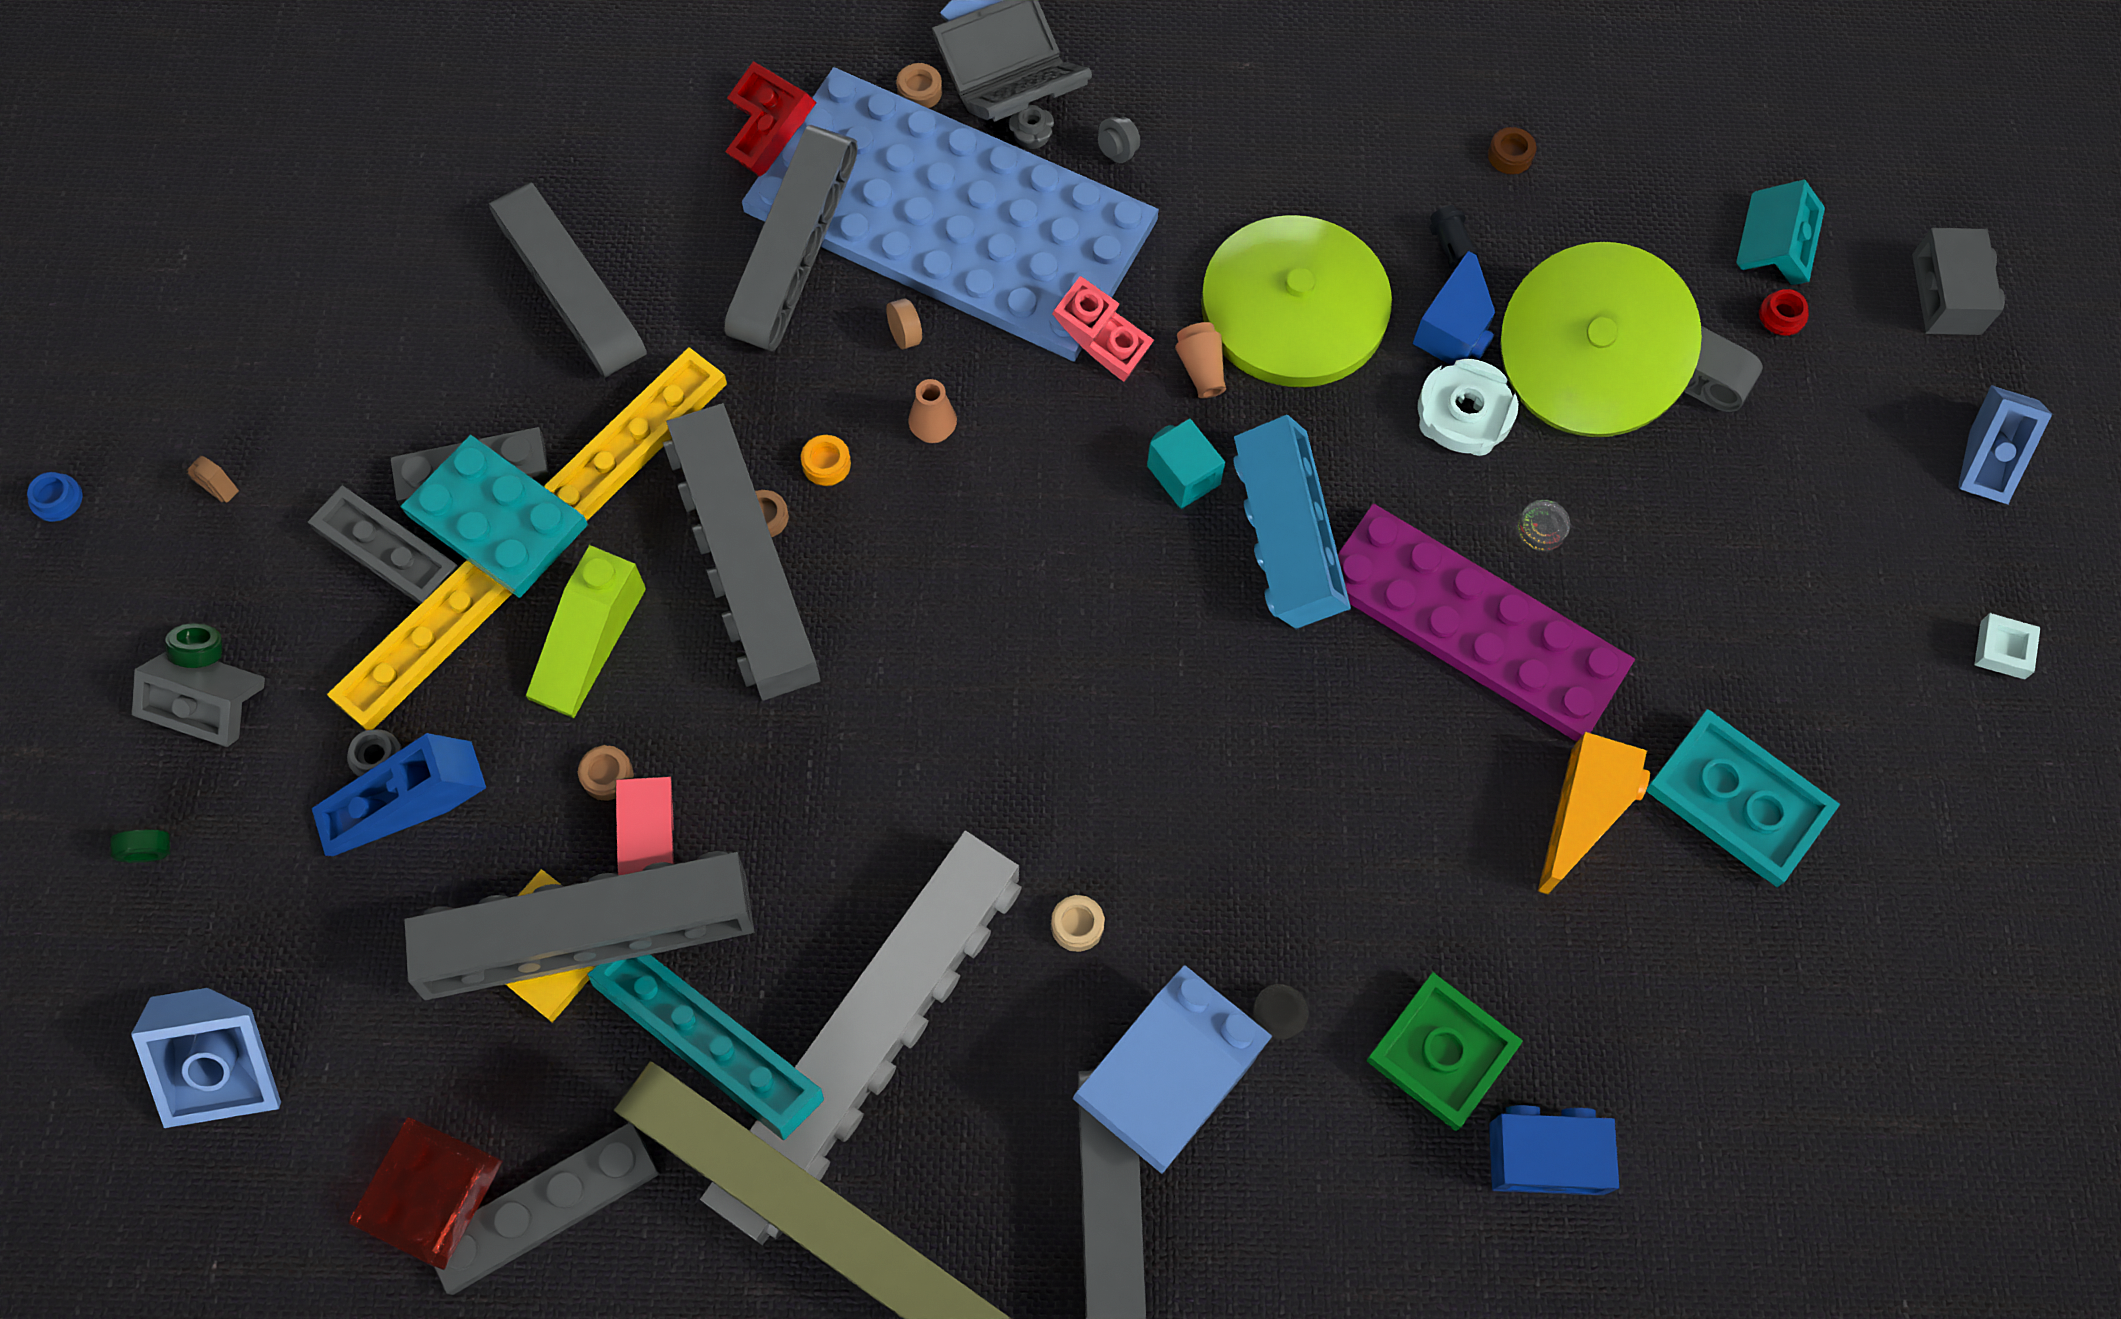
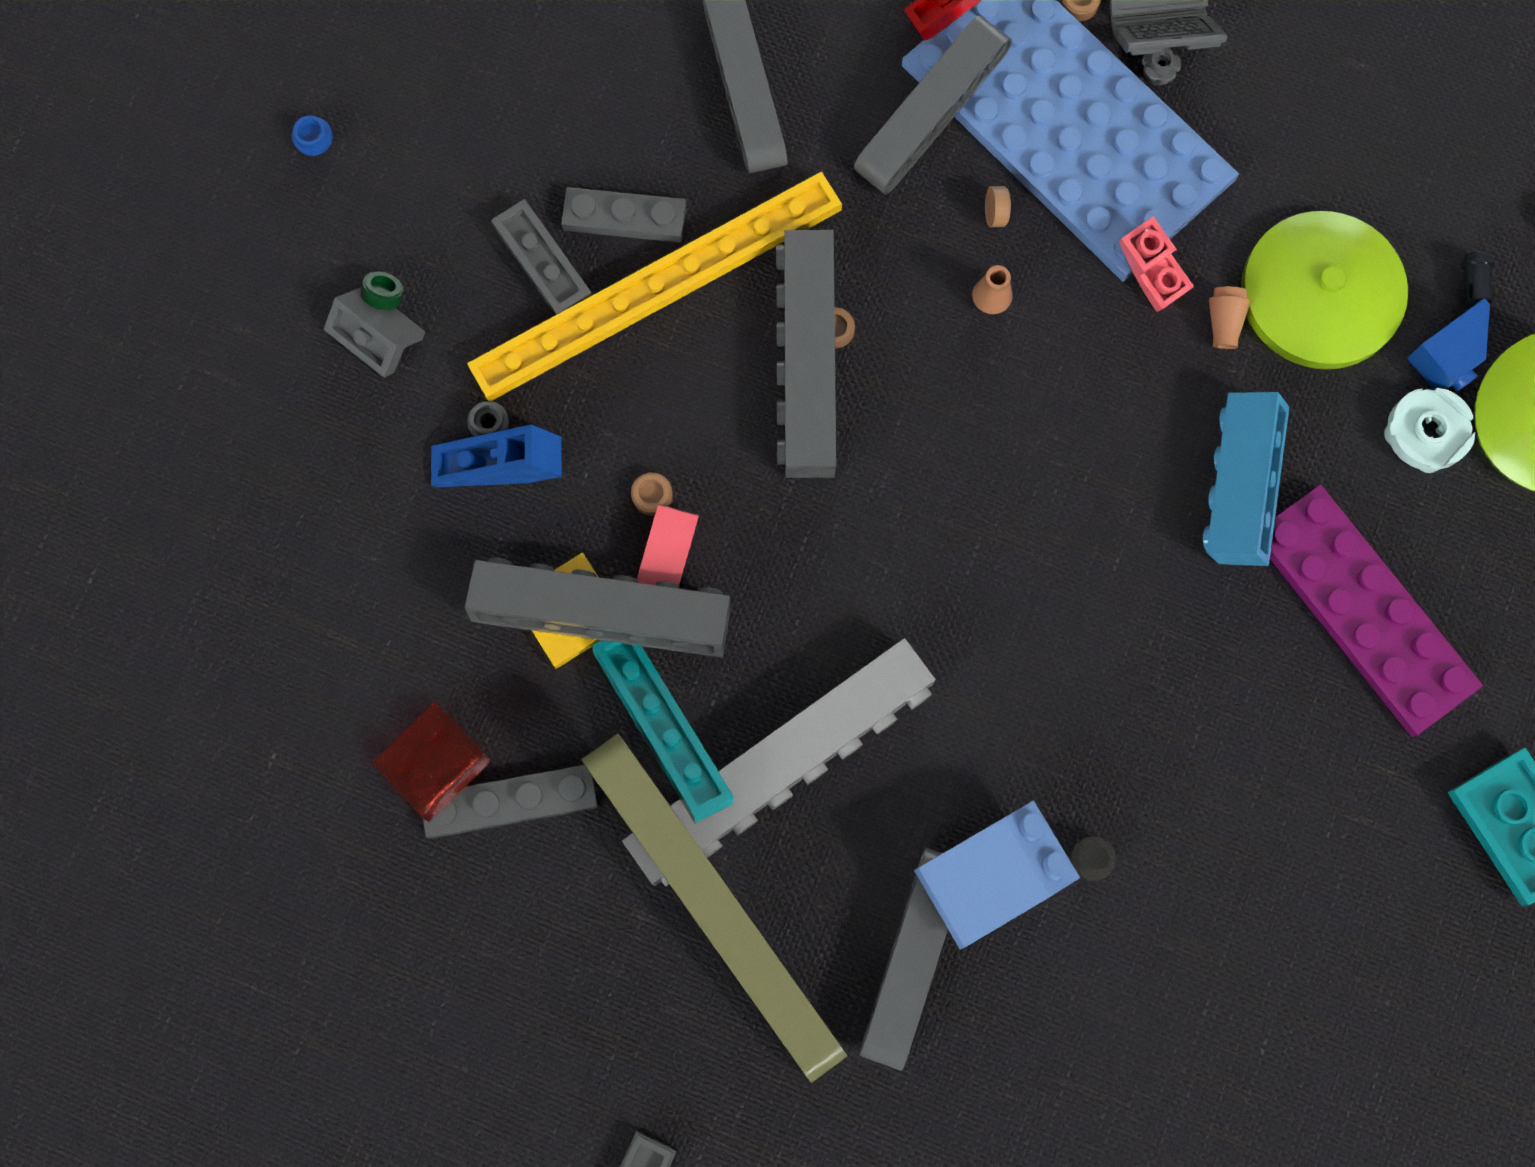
camera: 25 degrees right, 10 degrees up
(140, 846) = (303, 433): dark green tile -> none
(203, 1058) = (306, 607): medium blue slope -> none
(212, 479) = (430, 160): medium nougat tile -> none
(494, 515) = (631, 263): teal plate -> none
(585, 629) = (670, 377): lime slope -> none
(825, 460) = (897, 299): light orange tile -> none
(1077, 923) = (964, 735): tan tile -> none
(1118, 138) = (1228, 101): dark grey plate -> none
(1185, 462) = (1180, 399): teal brick -> none
(1444, 1051) = (1207, 934): green plate -> none
(1544, 525) = (1454, 549): clear tile -> none
(1553, 1152) = (1260, 1041): blue brick -> none
(1596, 790) = (1406, 781): light orange slope -> none

